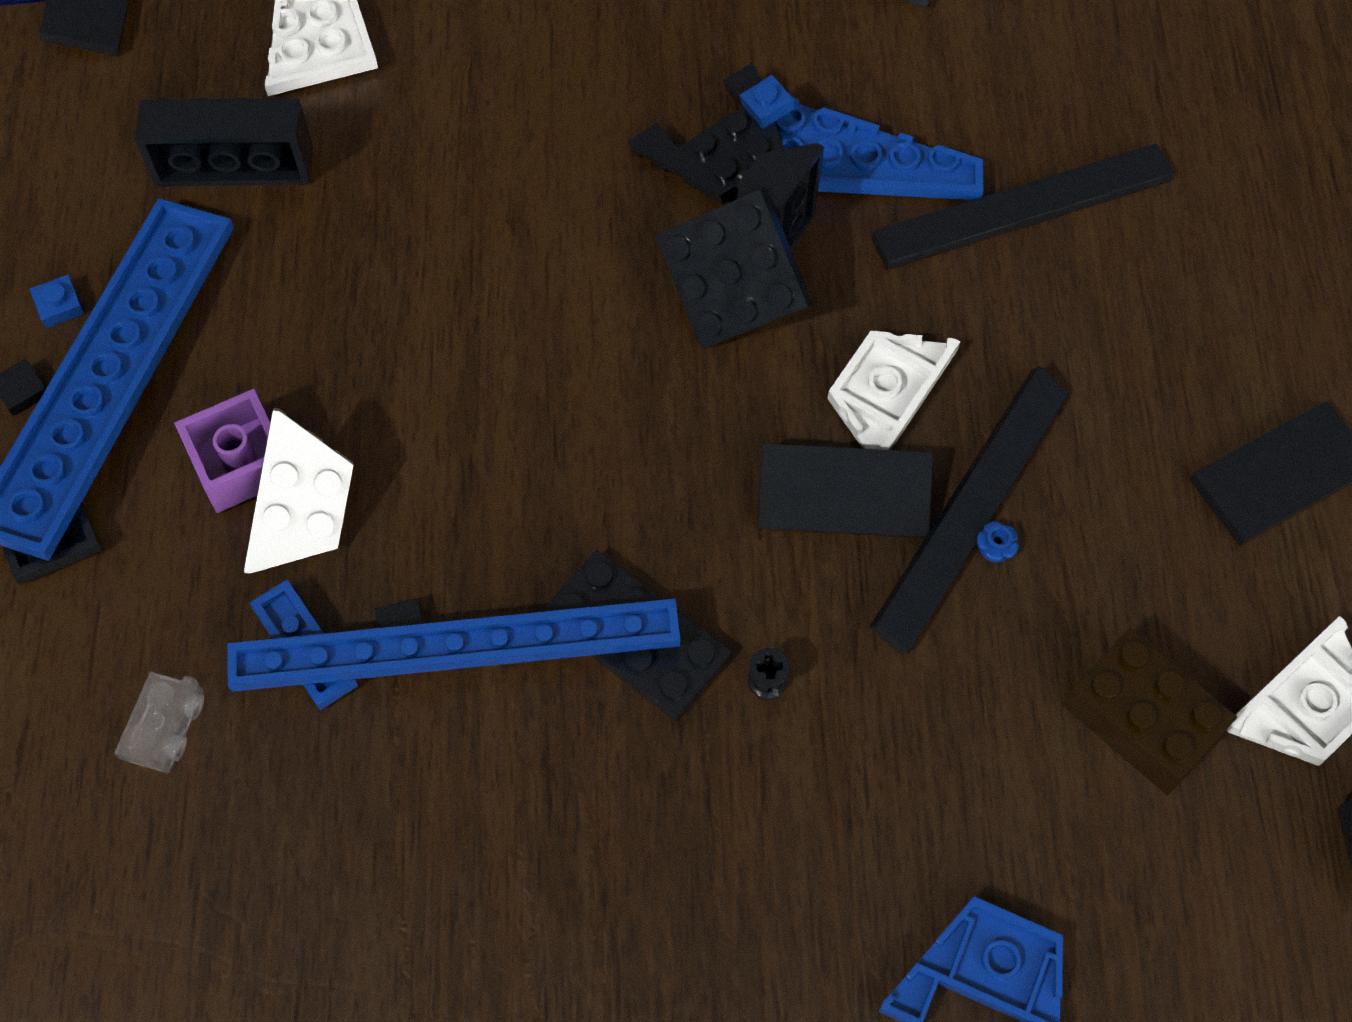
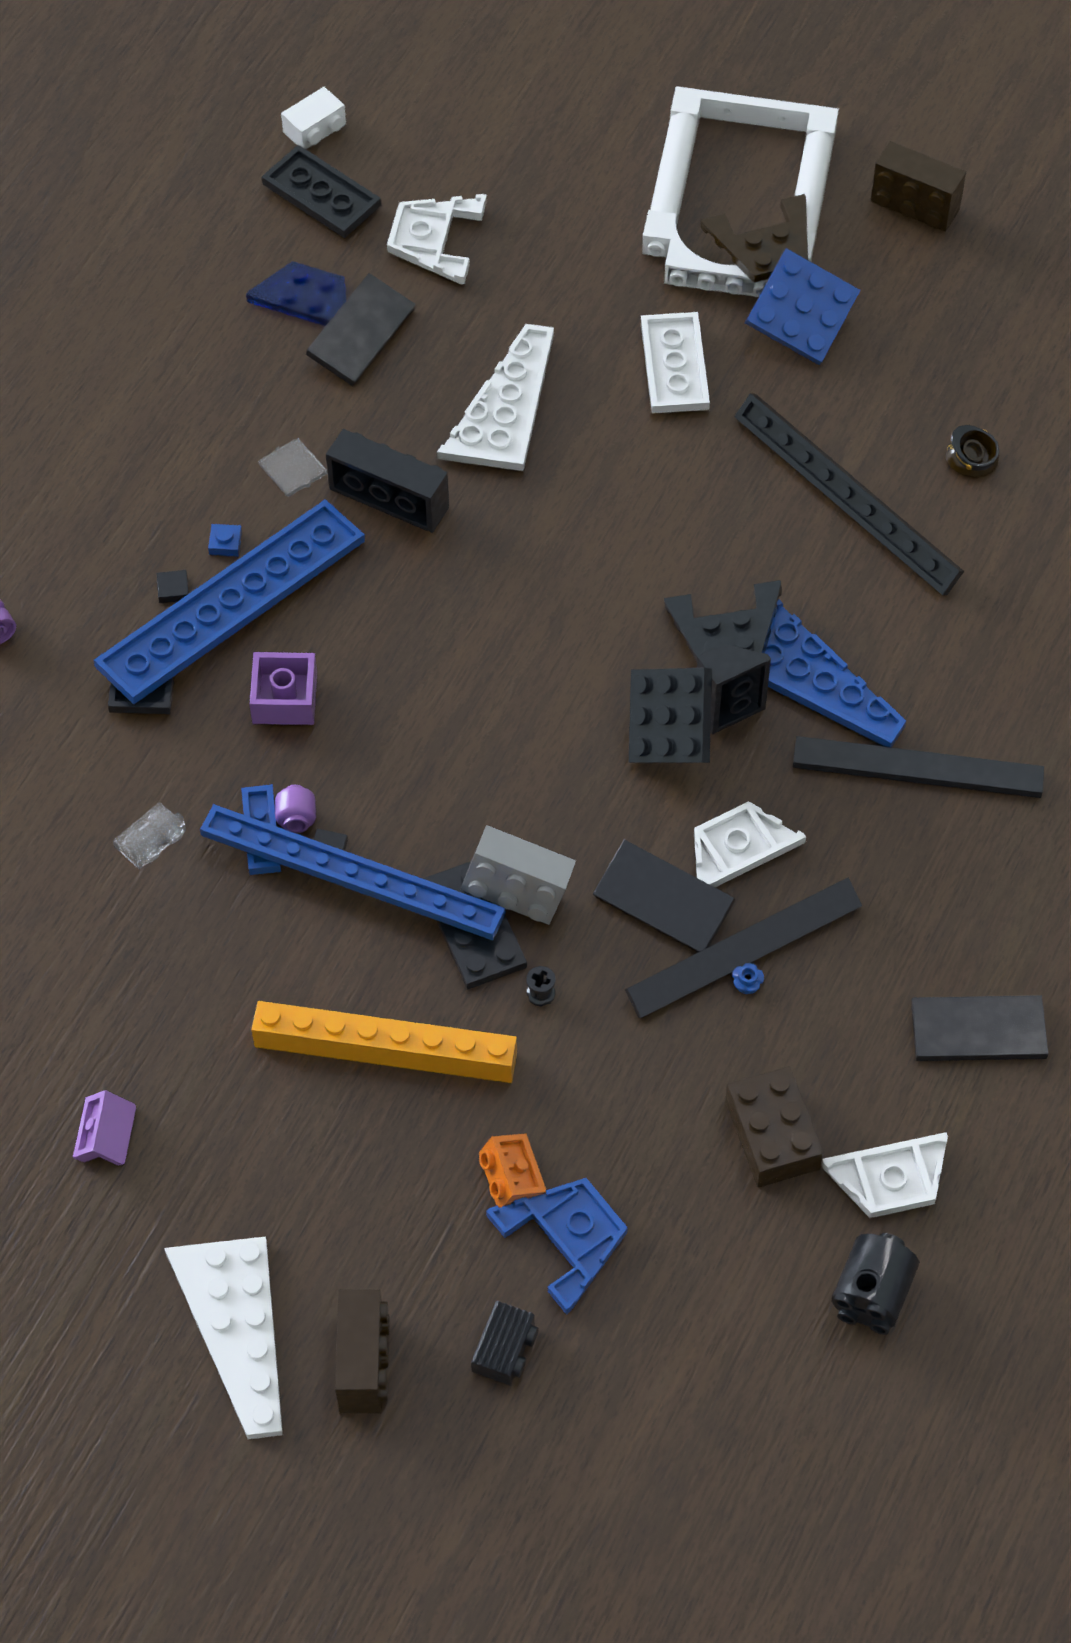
camera: 30 degrees right, 5 degrees down
(95, 179) = (292, 467): none -> clear piece
(298, 497) = (306, 735): white wing -> none
(334, 596) = (295, 808): none -> medium lavender head
(618, 848) = (384, 1041): none -> light orange brick
(668, 549) = (518, 875): none -> light grey brick
(767, 101) = (770, 612): blue plate -> none
(875, 935) = (511, 1169): none -> orange bracket

